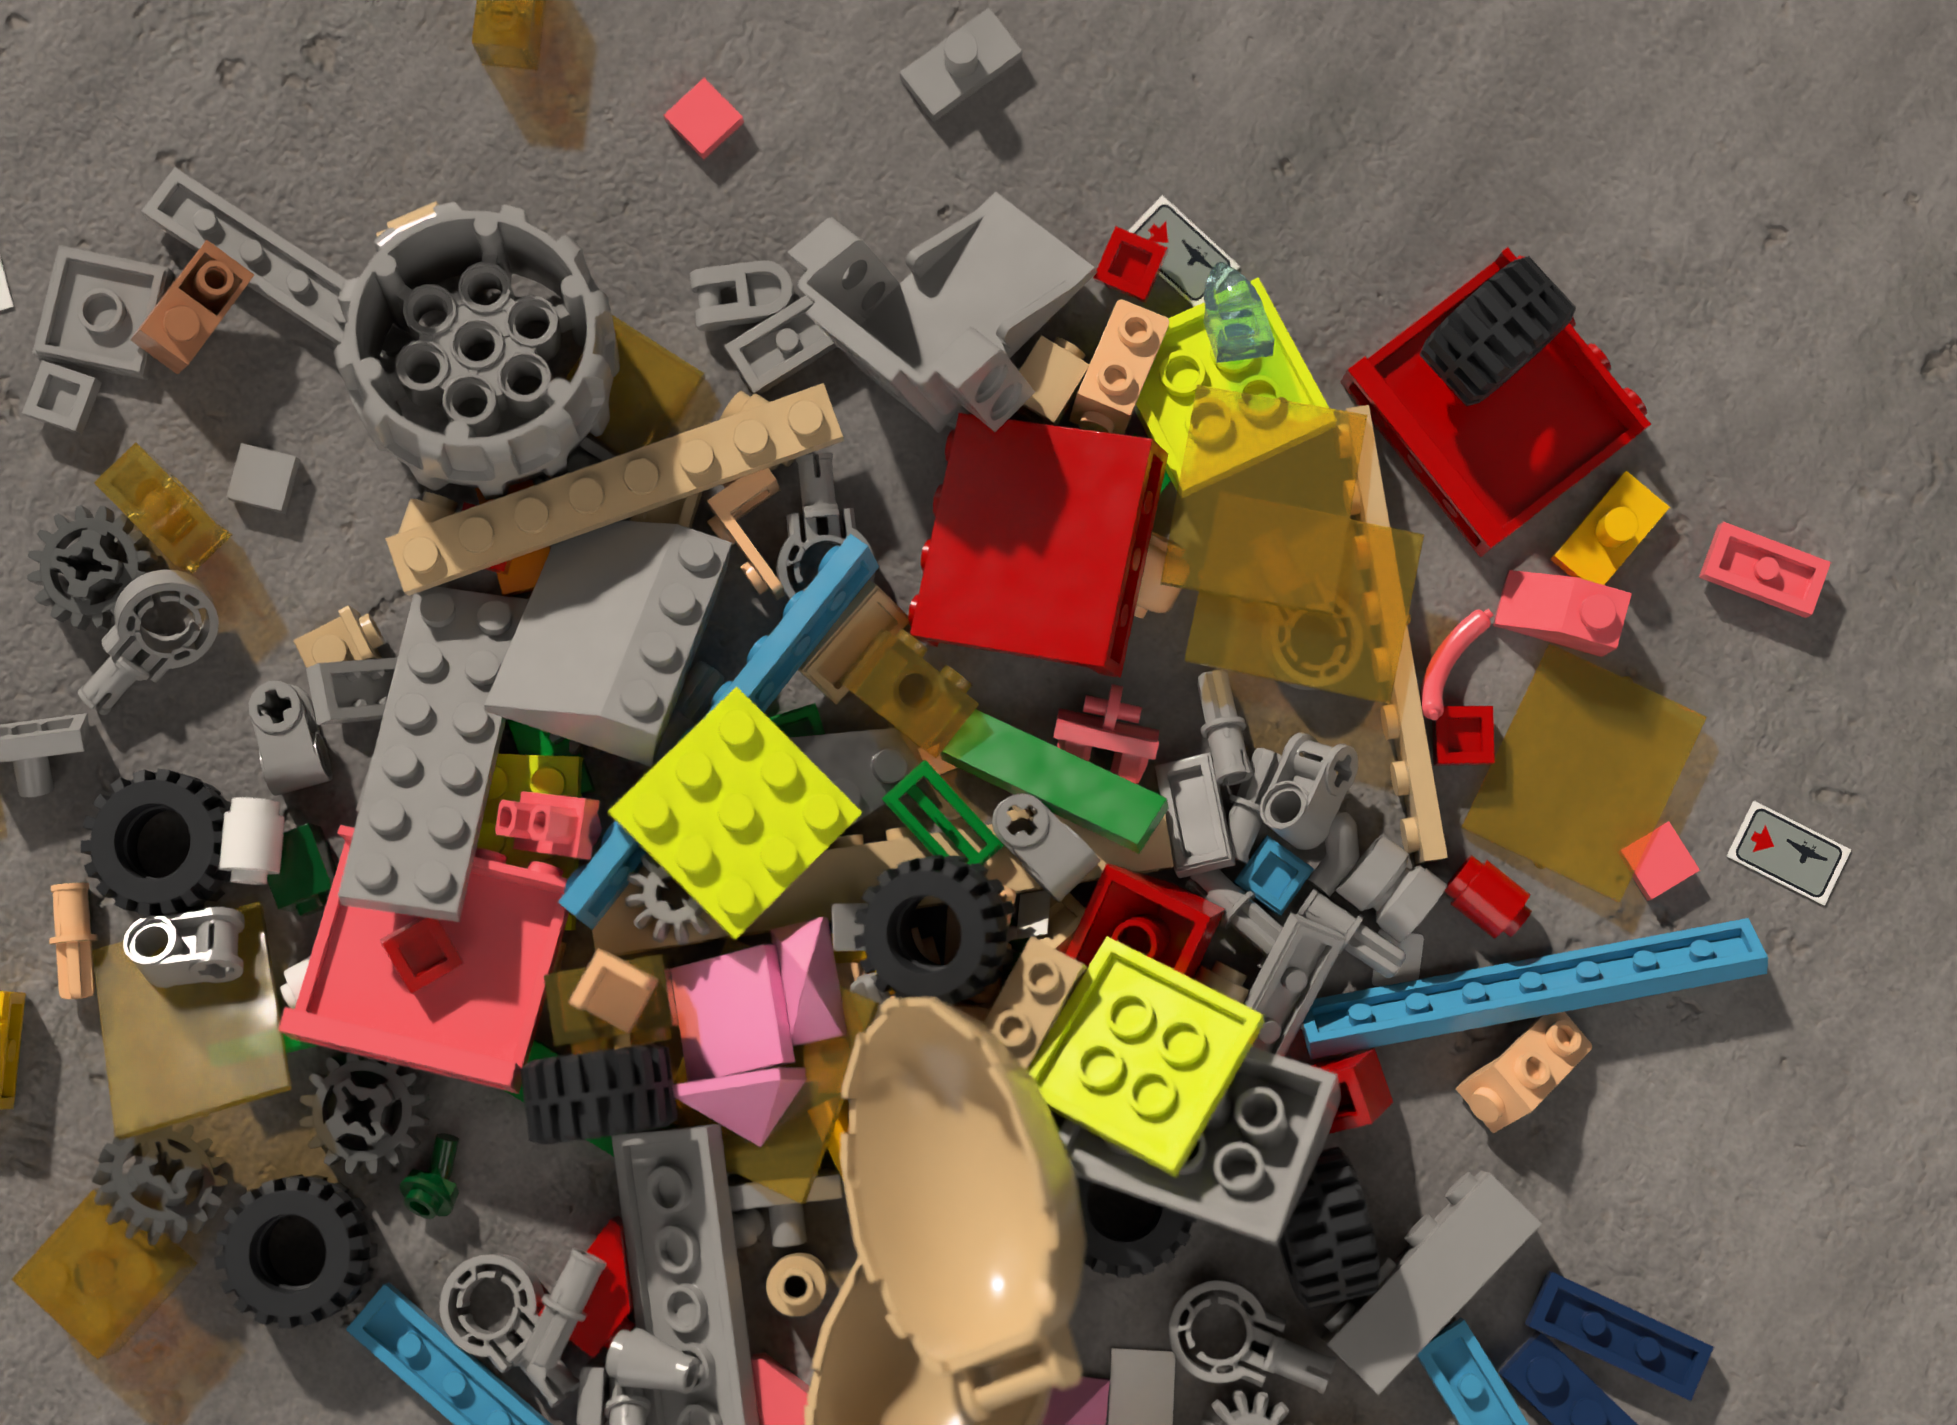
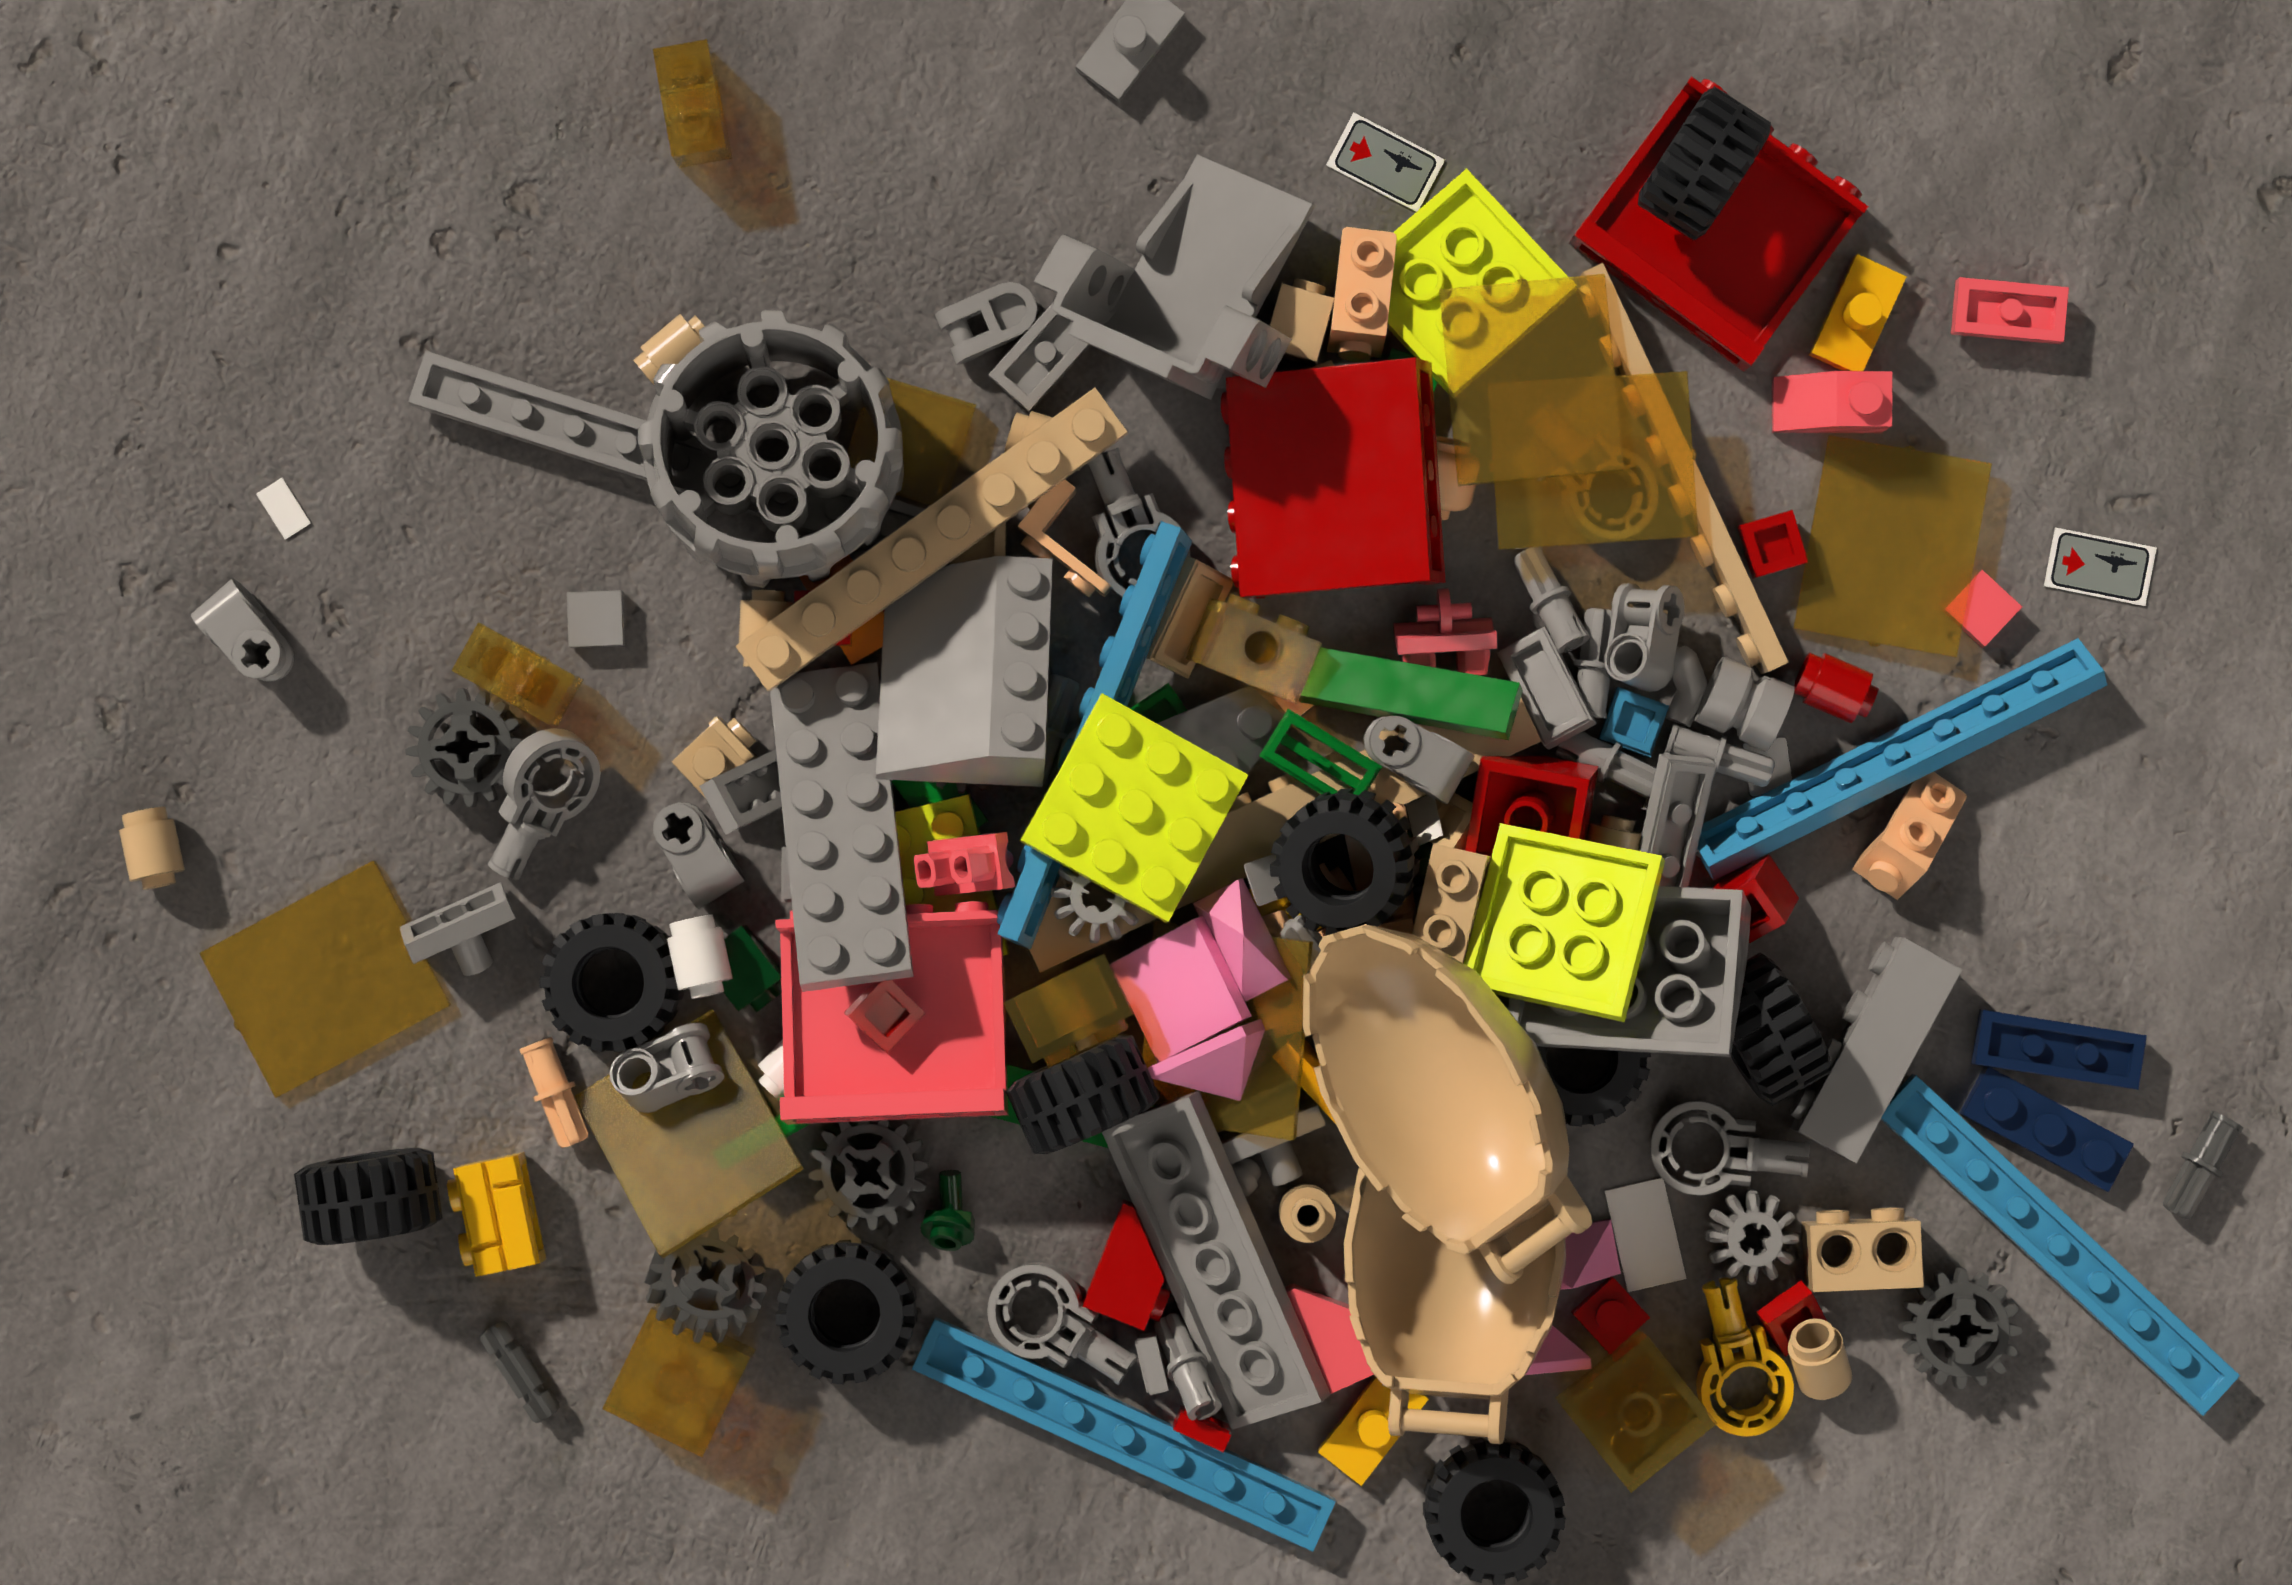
camera: 10 degrees left, 5 degrees up
(61, 397) = (387, 597): light grey plate -> none
(96, 309) = (398, 505): light grey tile -> none
(192, 307) = (485, 480): nougat slope -> none
(563, 1309) = (1106, 1294): light grey axle -> none
(614, 990) = (1074, 999): light nougat panel -> none
(648, 1362) = (1196, 1320): light grey cone -> none
(703, 118) = (903, 162): coral tile -> none
(1130, 264) = (1344, 189): red plate -> none
(1235, 317) = (1456, 214): clear light blue plate -> none
(1445, 658) = (1736, 478): coral piece -> none

